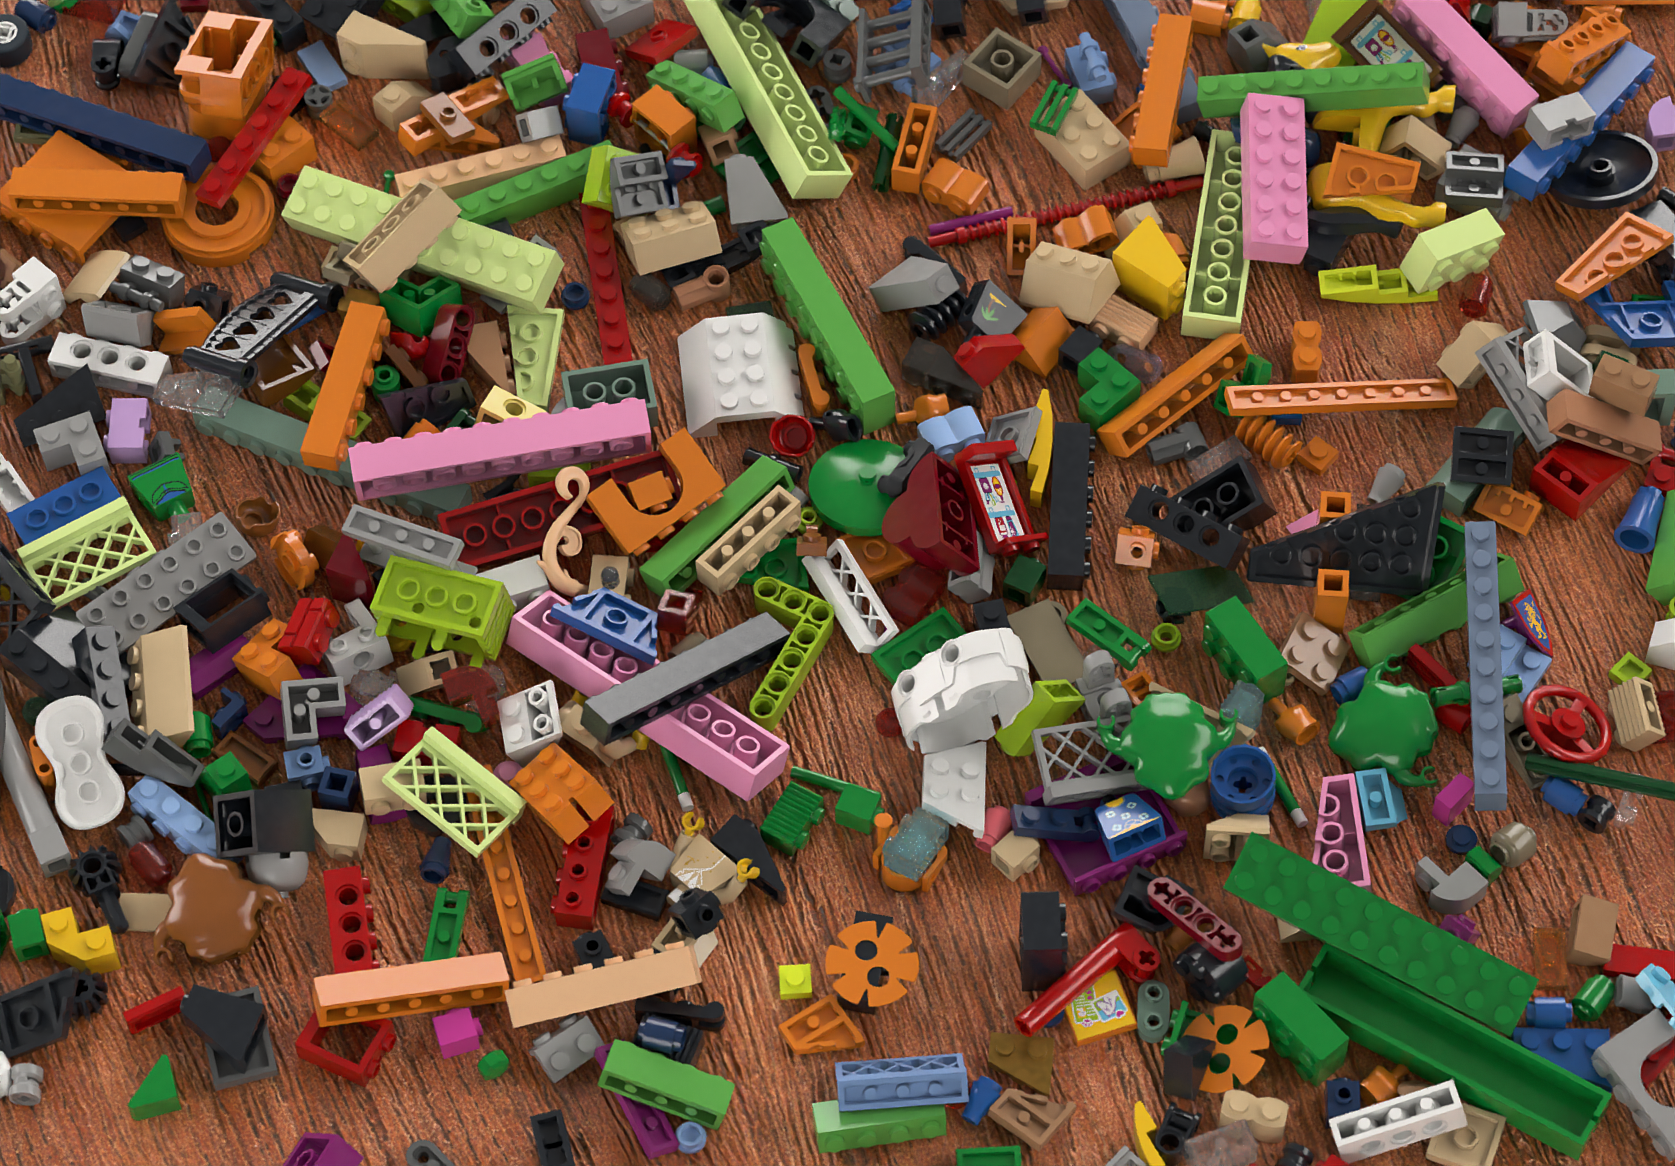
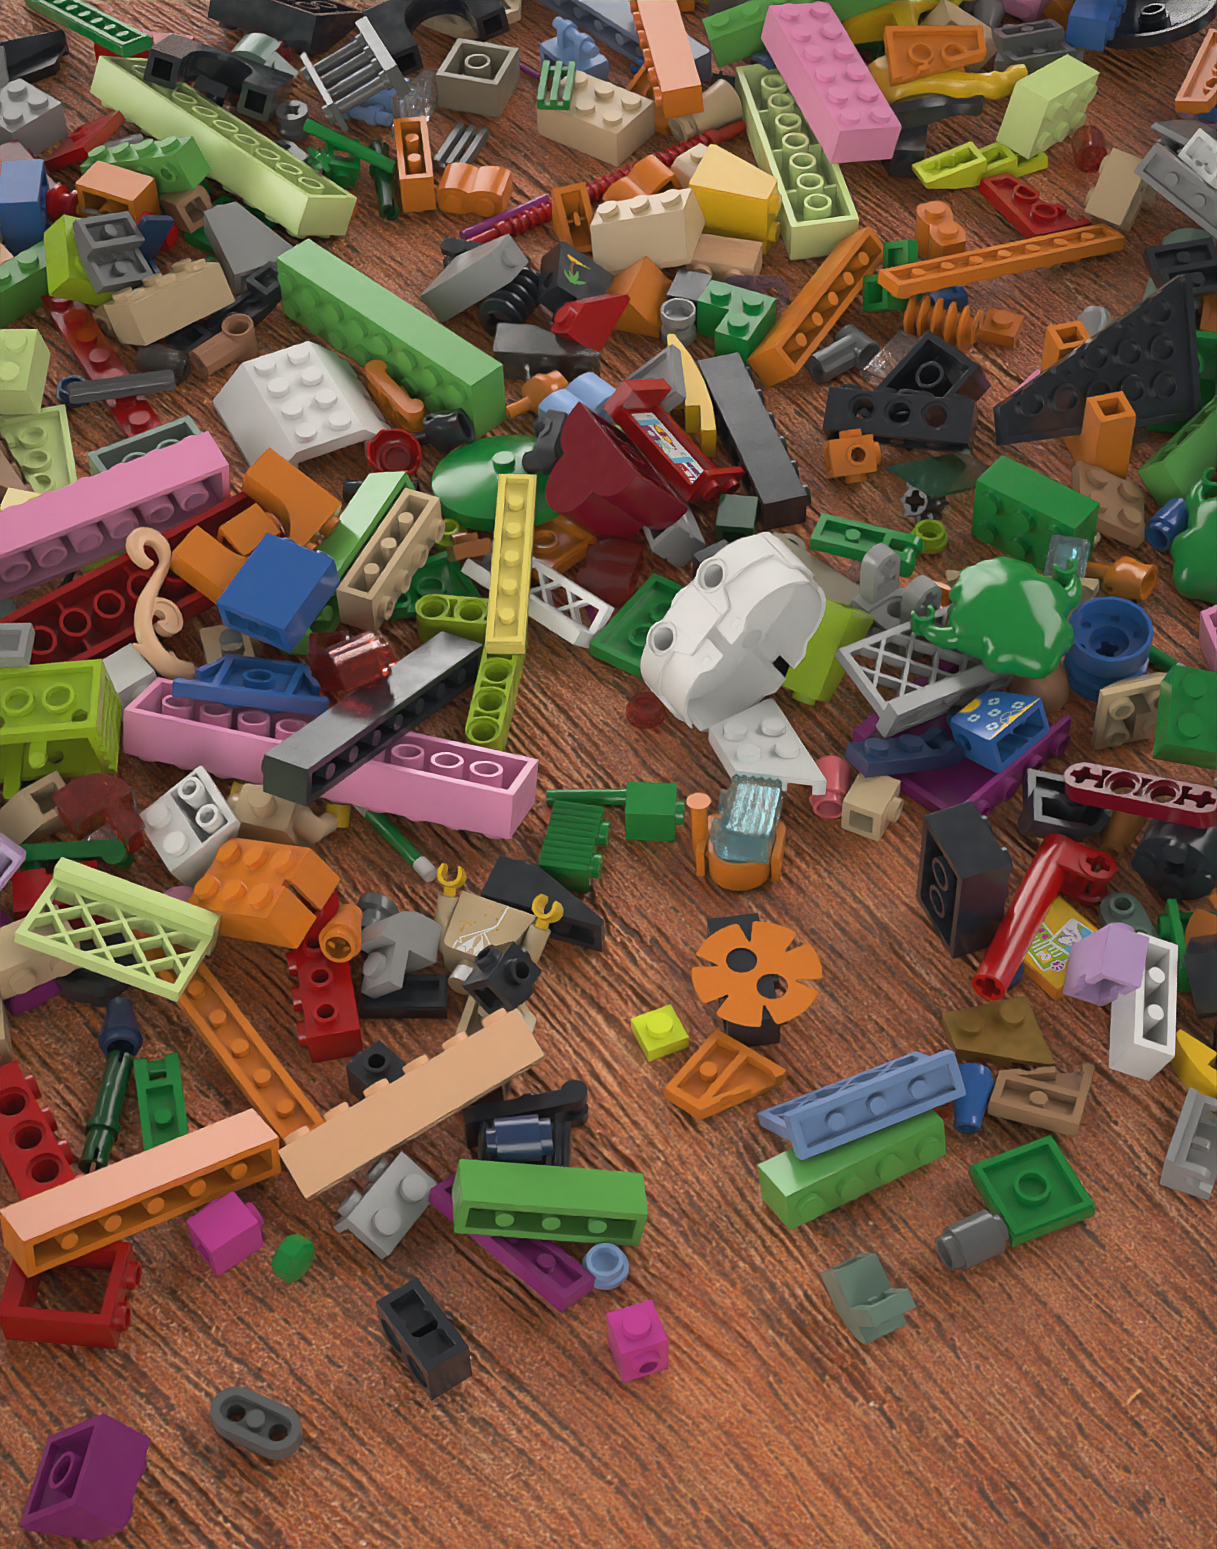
camera: 20 degrees left, 10 degrees down
(404, 929) = (103, 1126): none -> dark green pin
(602, 844) = (343, 934): none -> orange cone
(609, 308) = (121, 386): none -> dark grey axle
(652, 552) = (279, 592): none -> blue brick
(688, 631) = (361, 660): none -> clear red brick
(836, 570) = (511, 564): none -> light yellow tile
(1061, 374) = (678, 319): none -> light grey wheel
(1111, 1036) = (1106, 964): none -> lavender brick
(1126, 1074) = (1146, 1018): none -> white brick
(1394, 345) = (1025, 209): none -> red wing

